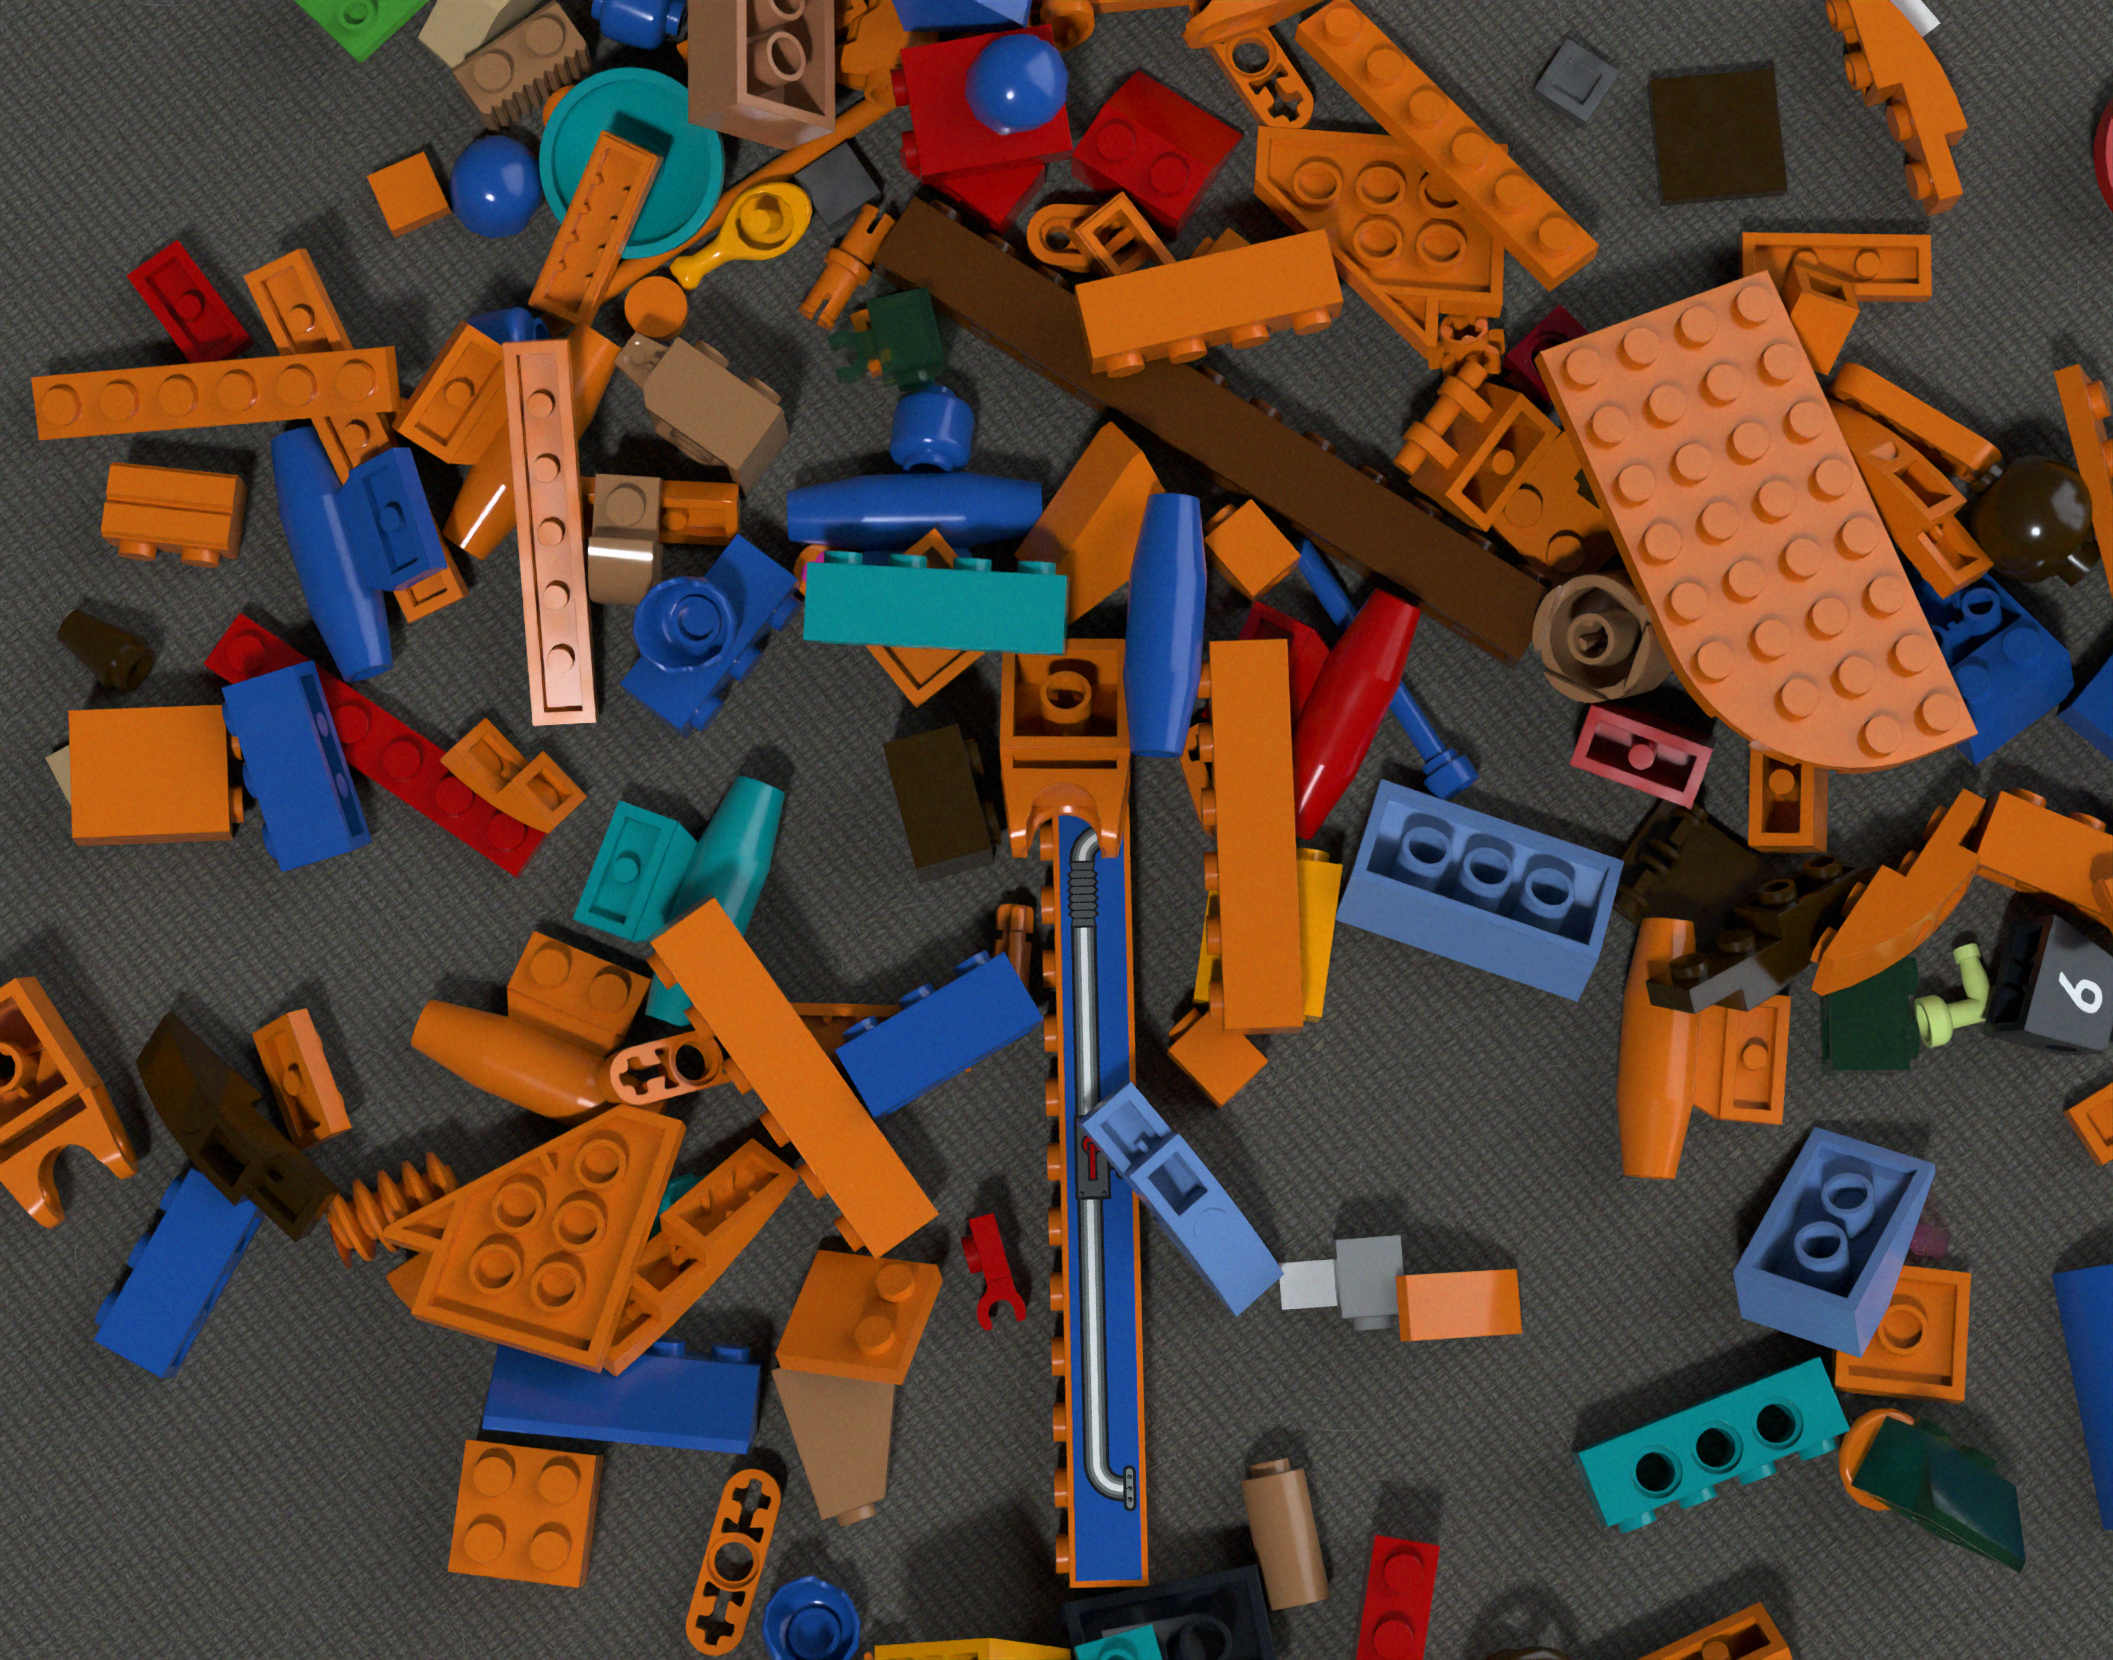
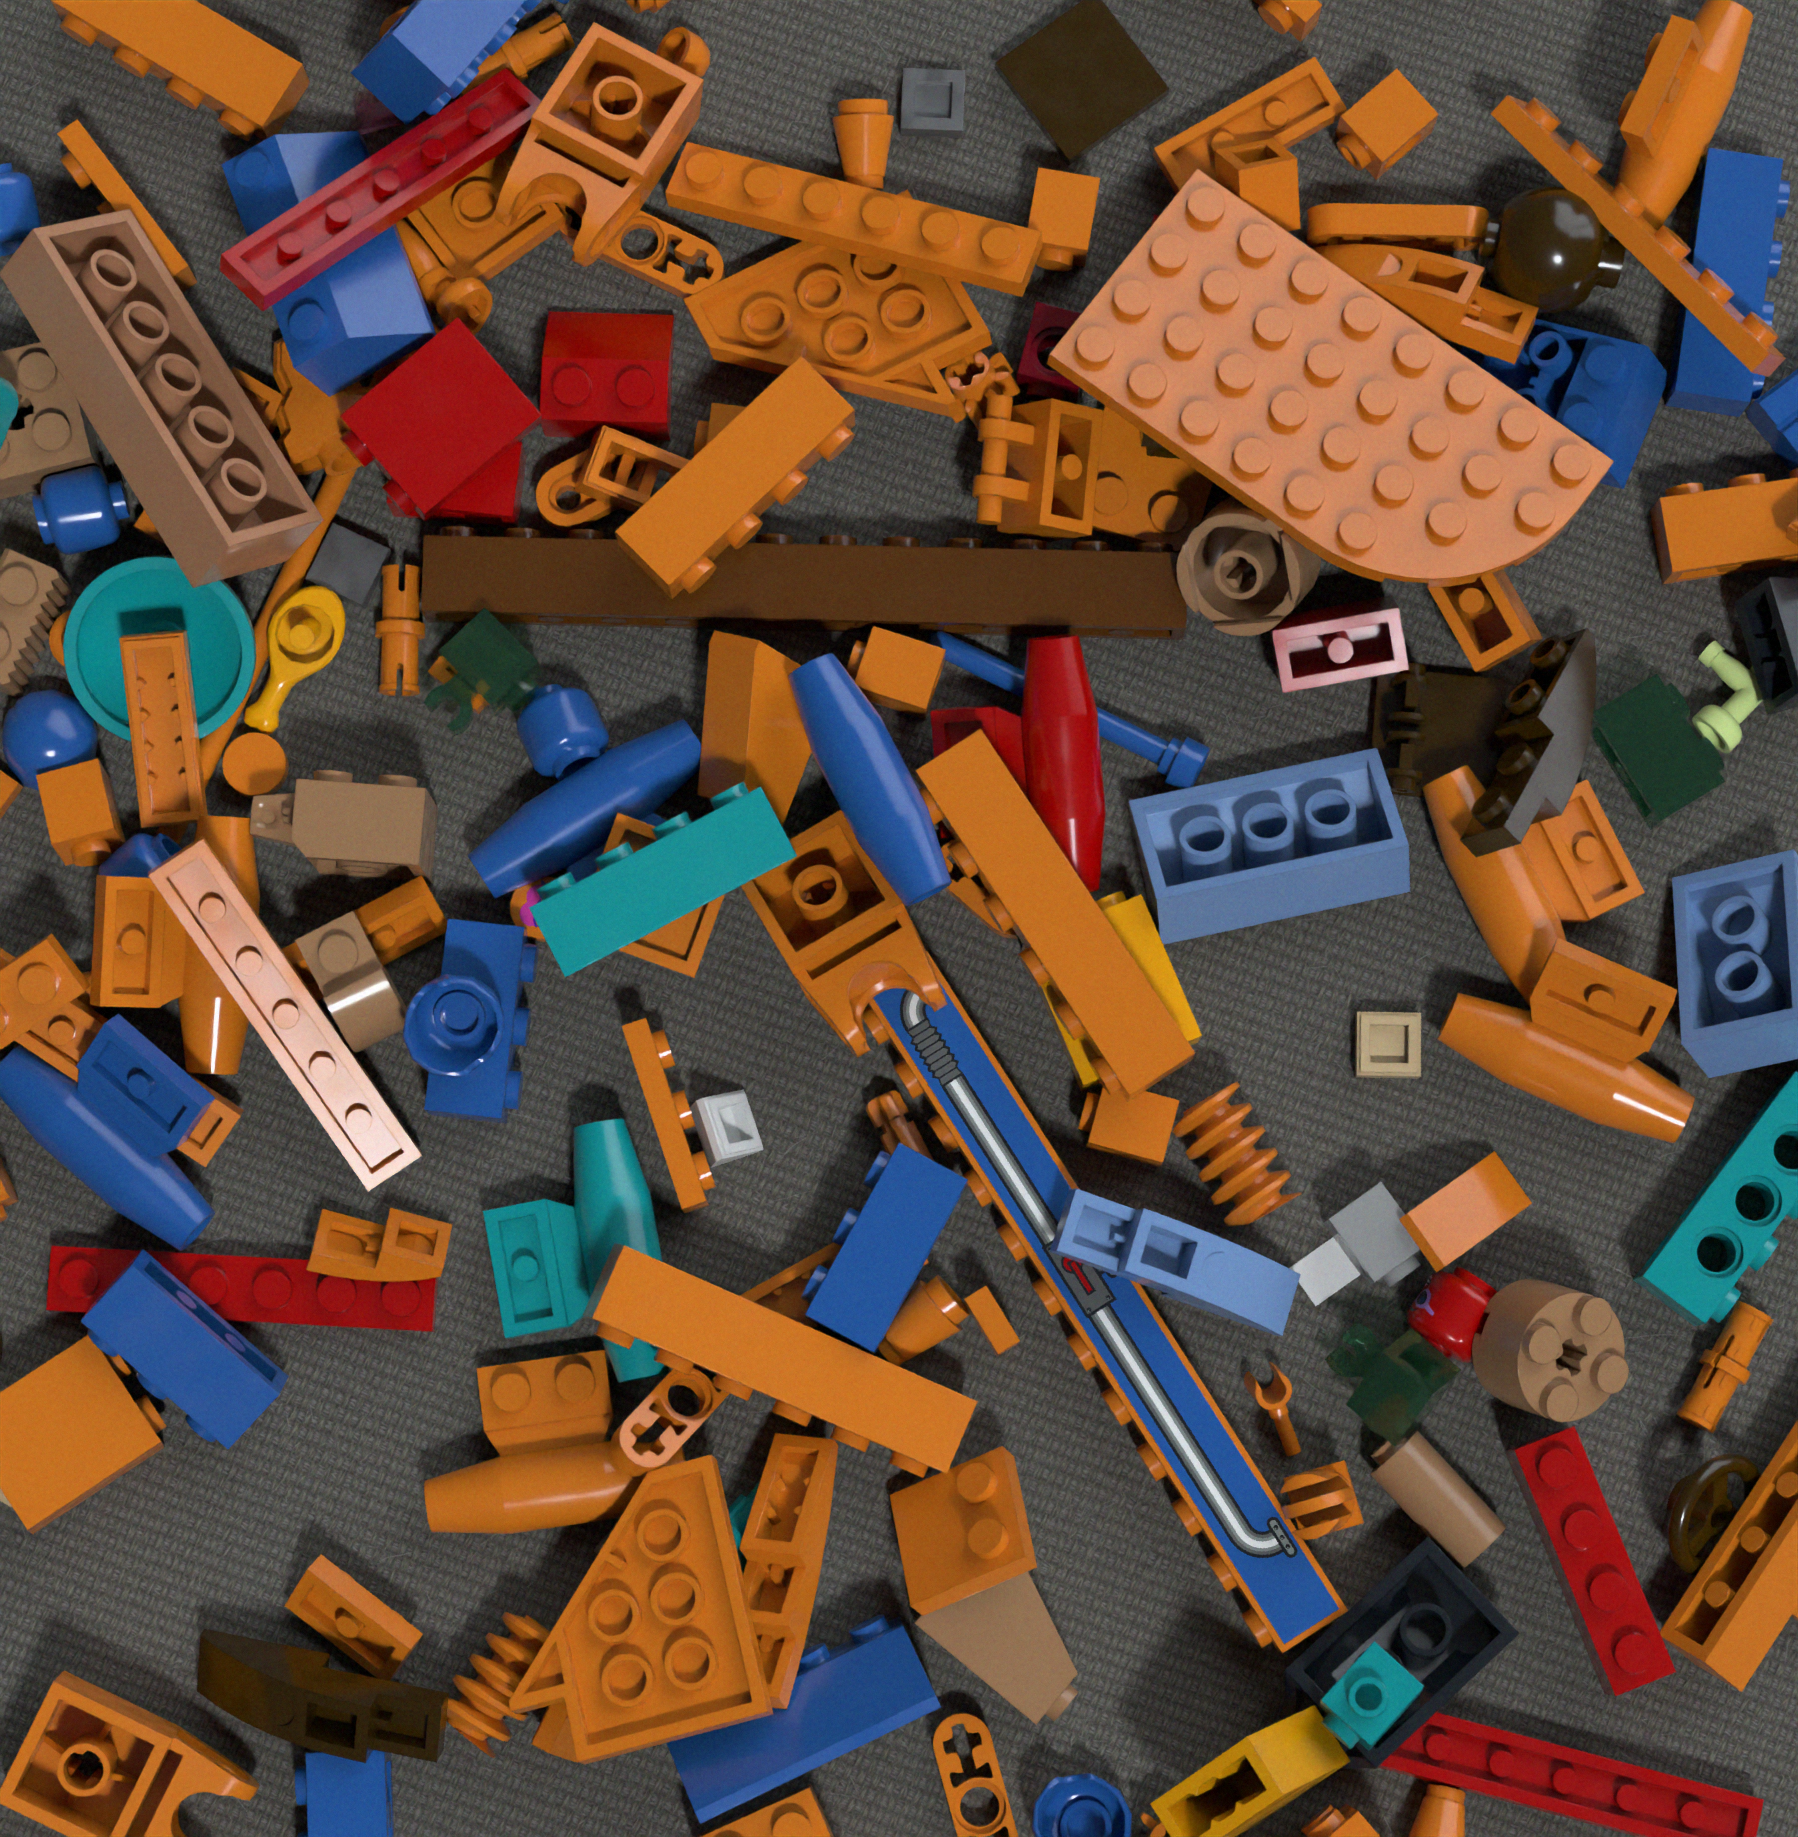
camera: 30 degrees left, 0 degrees up
(484, 261) = (81, 813): none -> orange brick
(826, 812) = (669, 1114): none -> orange plate
(869, 853) = (726, 1127): none -> white slope
(936, 1118) = (924, 1319): none -> orange cone
(939, 802) = (765, 1047): dark brown brick -> none
(986, 1254) = (1038, 1411): red plate -> none
(994, 1153) = (991, 1321): none -> orange tile
(1017, 84) = (460, 387): blue hair -> none
(1182, 1478) = (1321, 1501): none -> orange arm
(1196, 1368) = (1275, 1399): none -> orange hand
(1286, 1139) = (1234, 1157): none -> orange piece
(1312, 1415) = (1398, 1381): none -> clear green brick
(1394, 1390) = (1451, 1312): none -> red head
(1459, 1468) = (1550, 1350): none -> medium nougat brick
(1479, 1122) = (1387, 1045): none -> tan tile
(1496, 80) = (864, 140): none -> orange cone
(1604, 1575) = (1725, 1367): none -> orange pin
(1629, 246) = (1064, 214): none -> orange brick
(1645, 1219) = (1578, 1042): none -> orange plate
(1902, 906) = (1636, 645): orange slope -> none
(1956, 330) = (1384, 125): none -> orange brick

